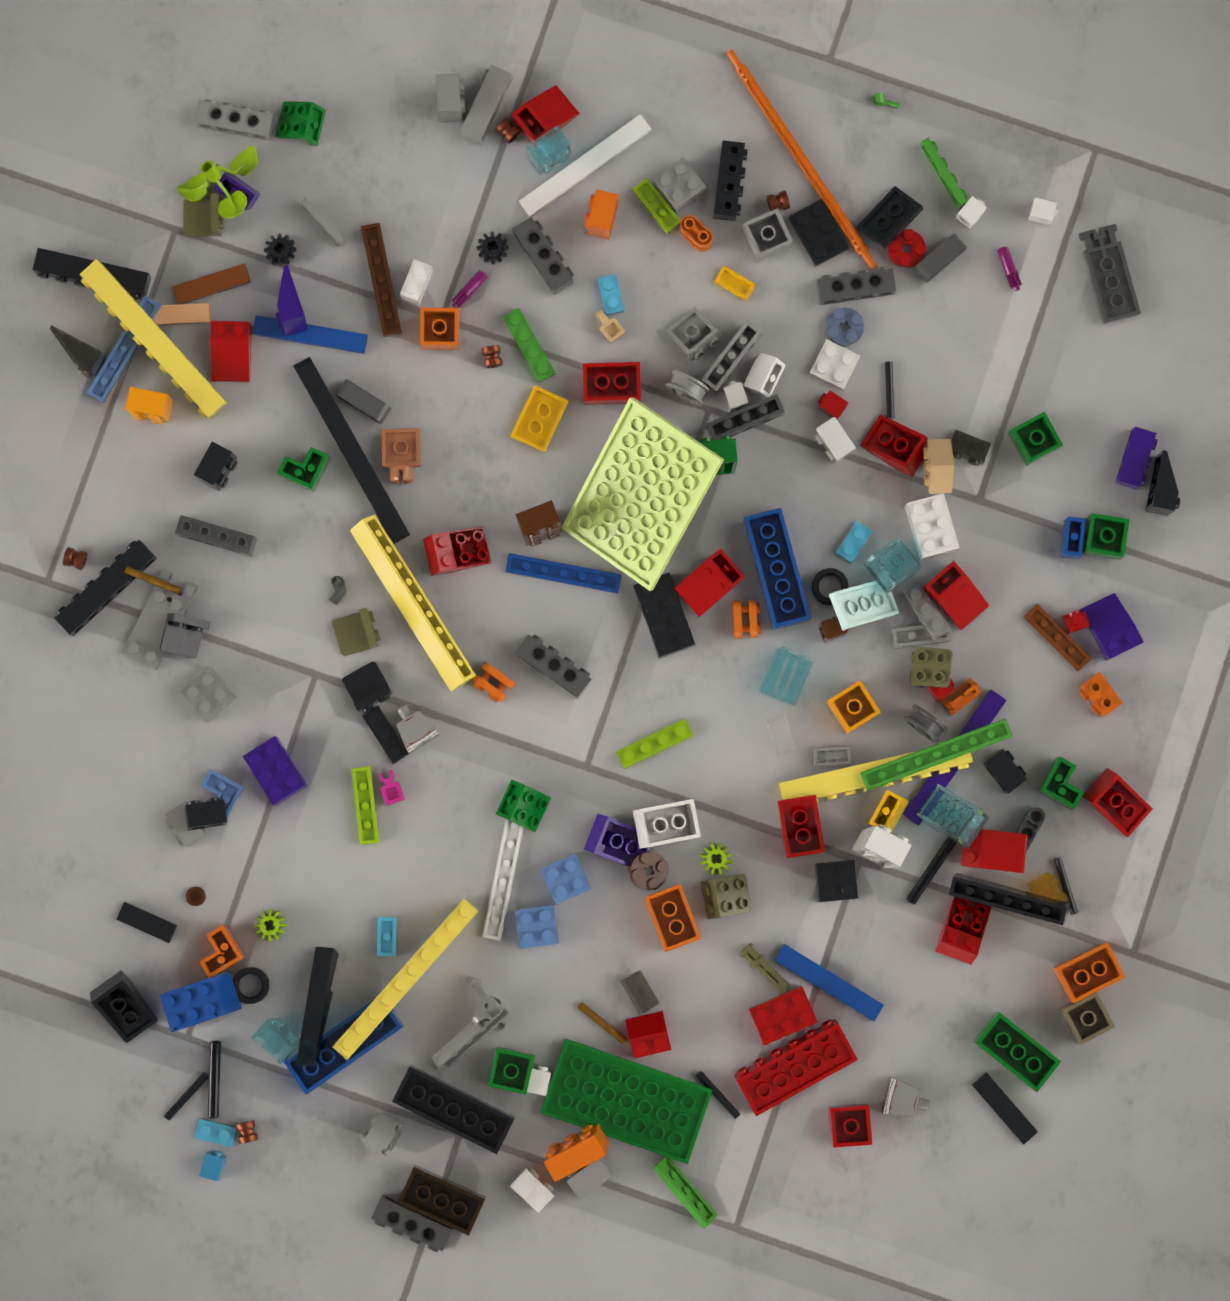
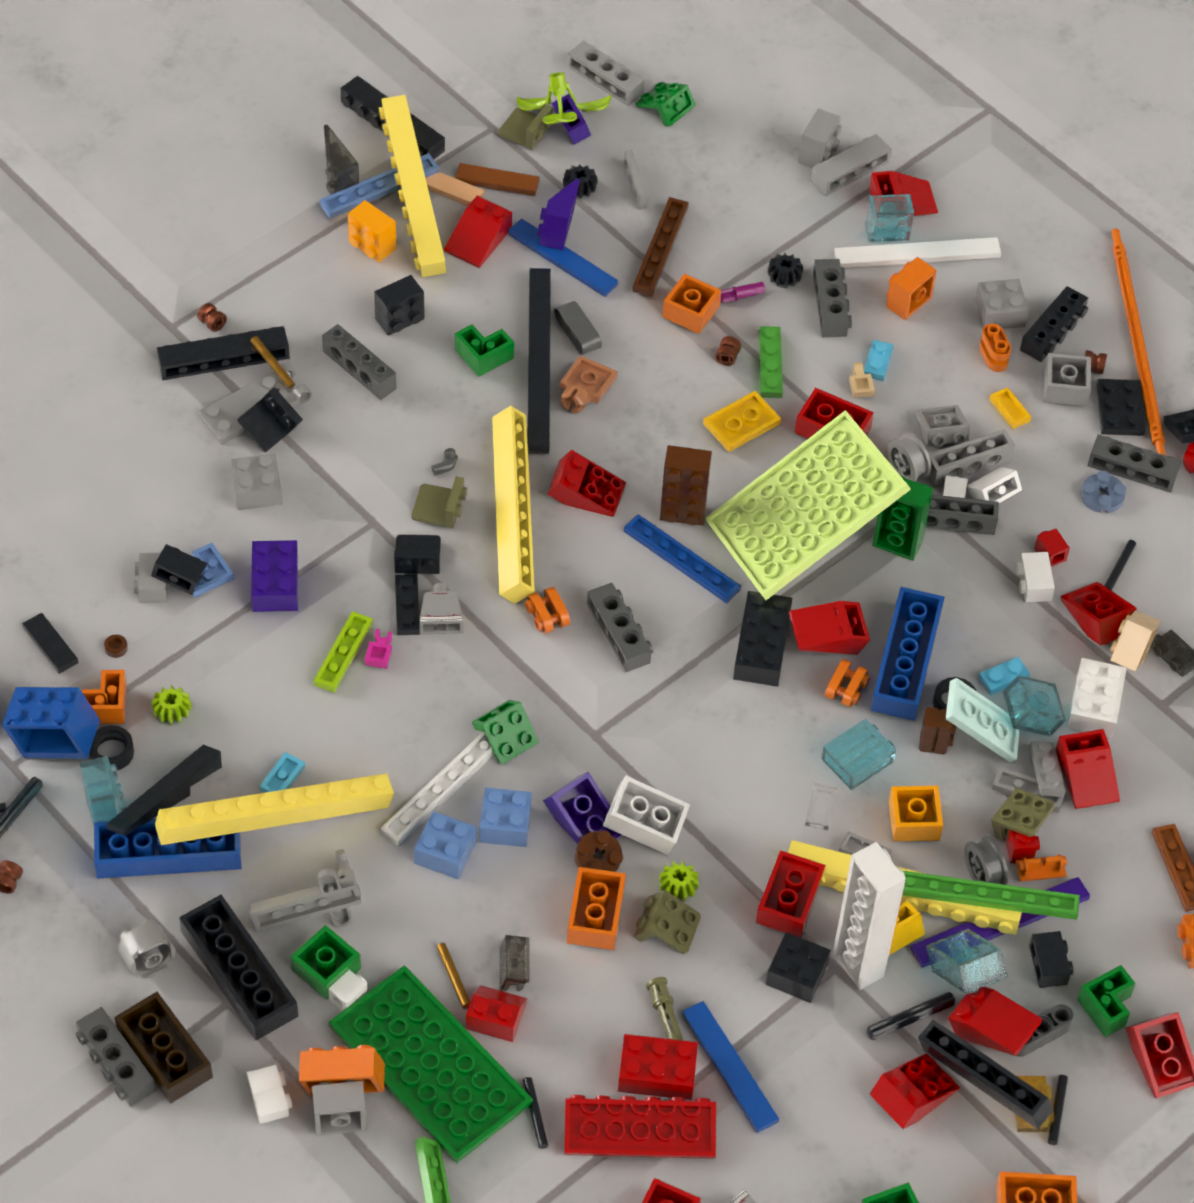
camera: 25 degrees right, 30 degrees down
(416, 282) = (693, 259): white brick -> none
(507, 130) = (859, 190): copper wheel -> none
(654, 743) = (680, 748): lime plate -> none
(656, 205) = (968, 311): lime plate -> none
(834, 364) = (1074, 518): white plate -> none

